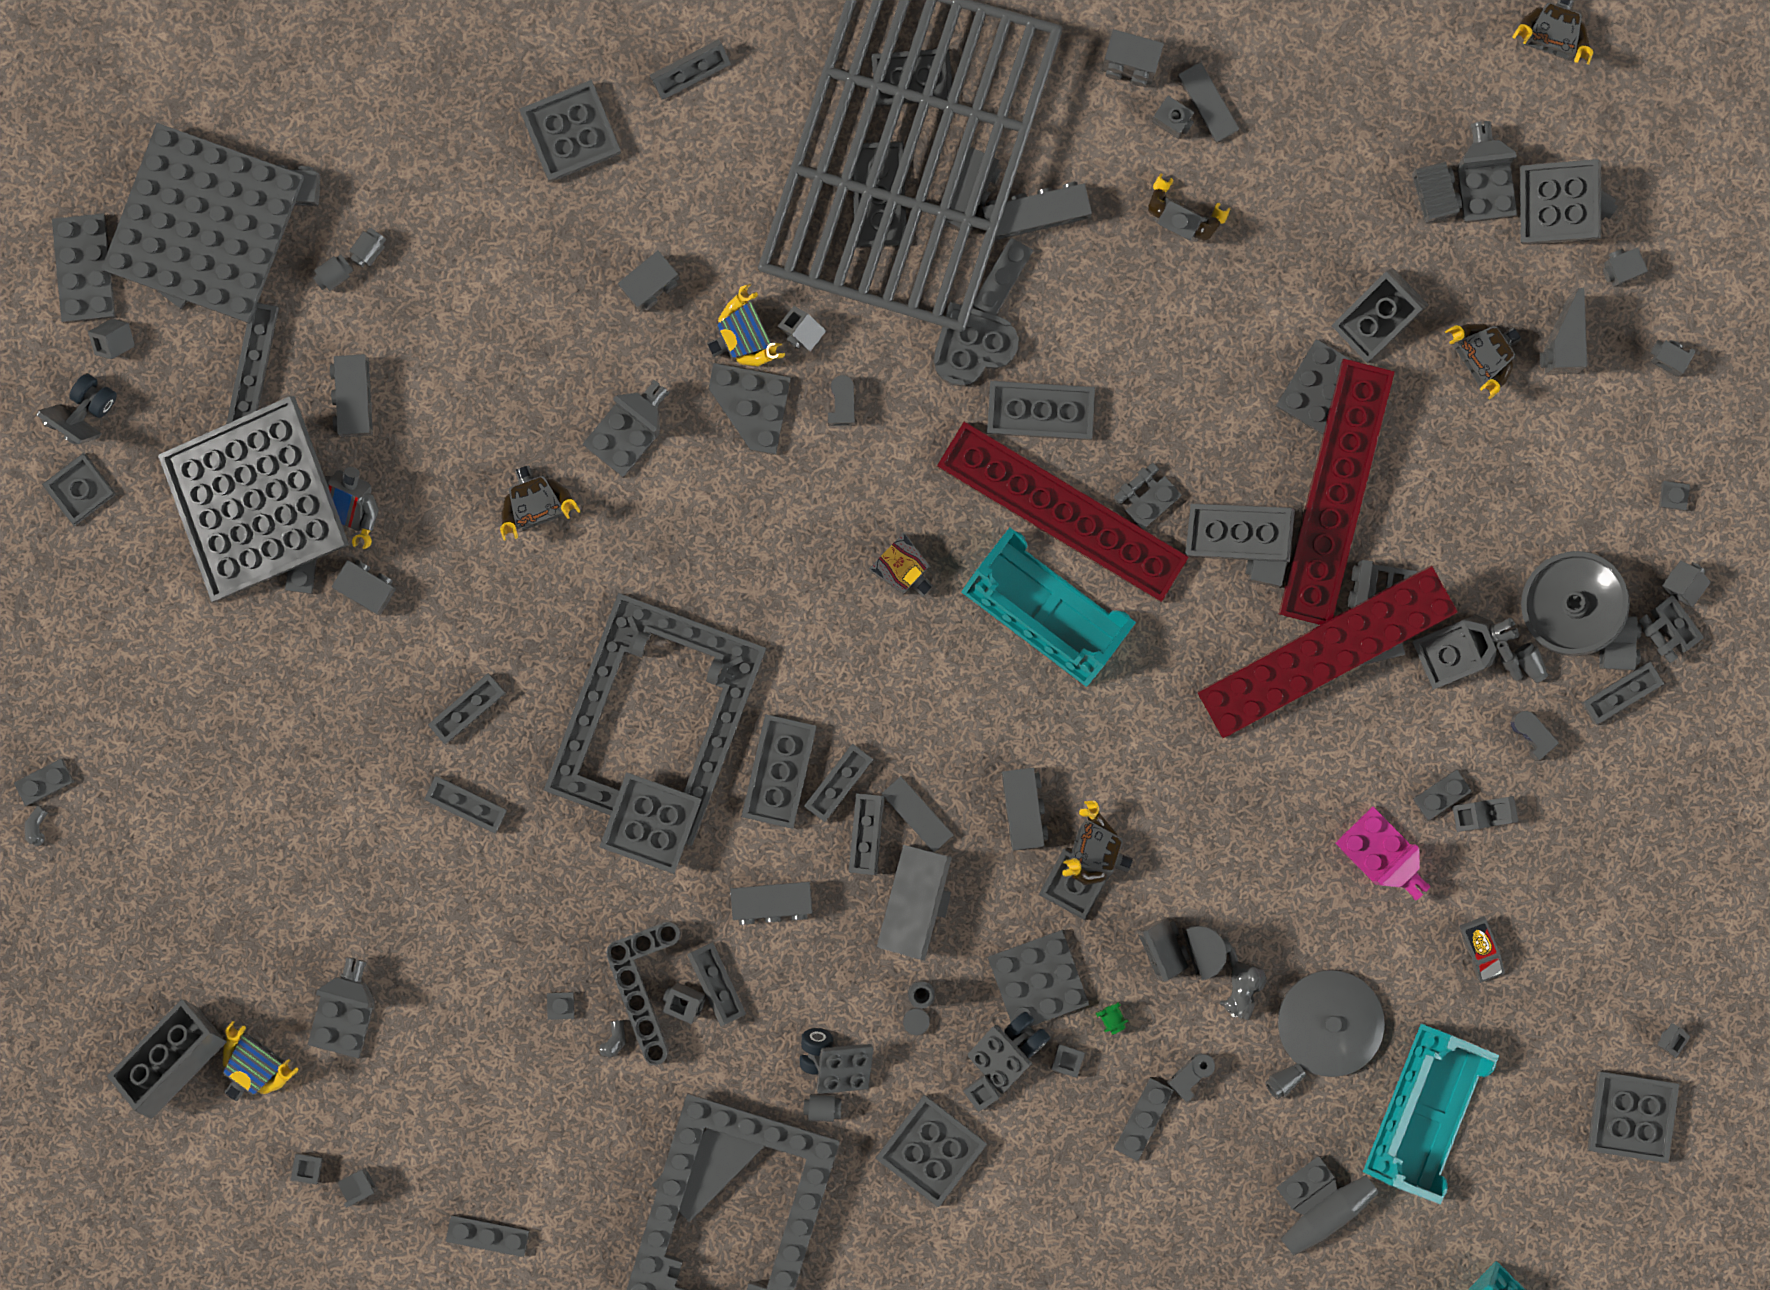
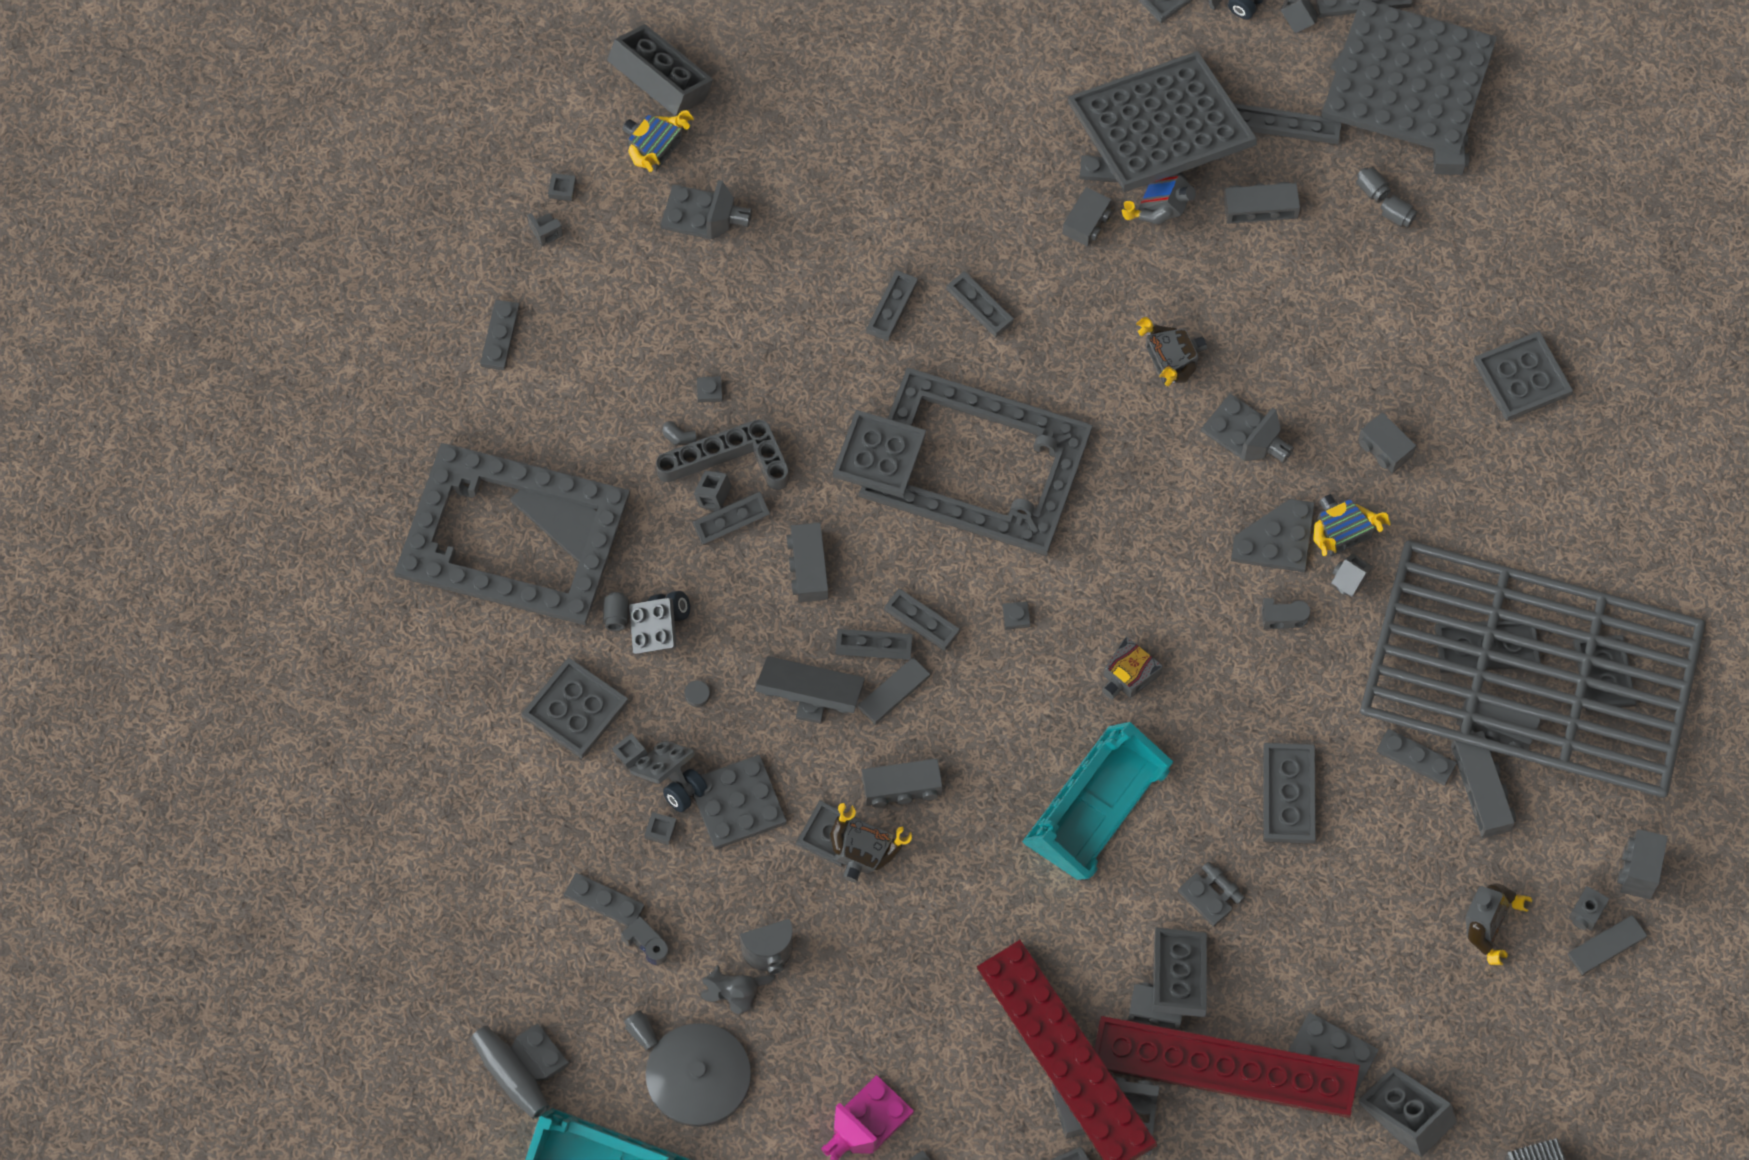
camera: 90 degrees right, 20 degrees down
(690, 69) = (1591, 475): dark grey plate -> none
(779, 771) = (931, 567): dark grey plate -> none
(834, 683) = (1016, 615): none -> dark grey plate
(924, 1002) = (723, 691): dark grey head -> none
(984, 344) = (1349, 735): dark grey plate -> none
(1062, 512) = (1190, 815): dark red plate -> none
(1112, 1018) = (701, 867): green brick -> none
(1163, 949) = (768, 901): dark grey slope -> none

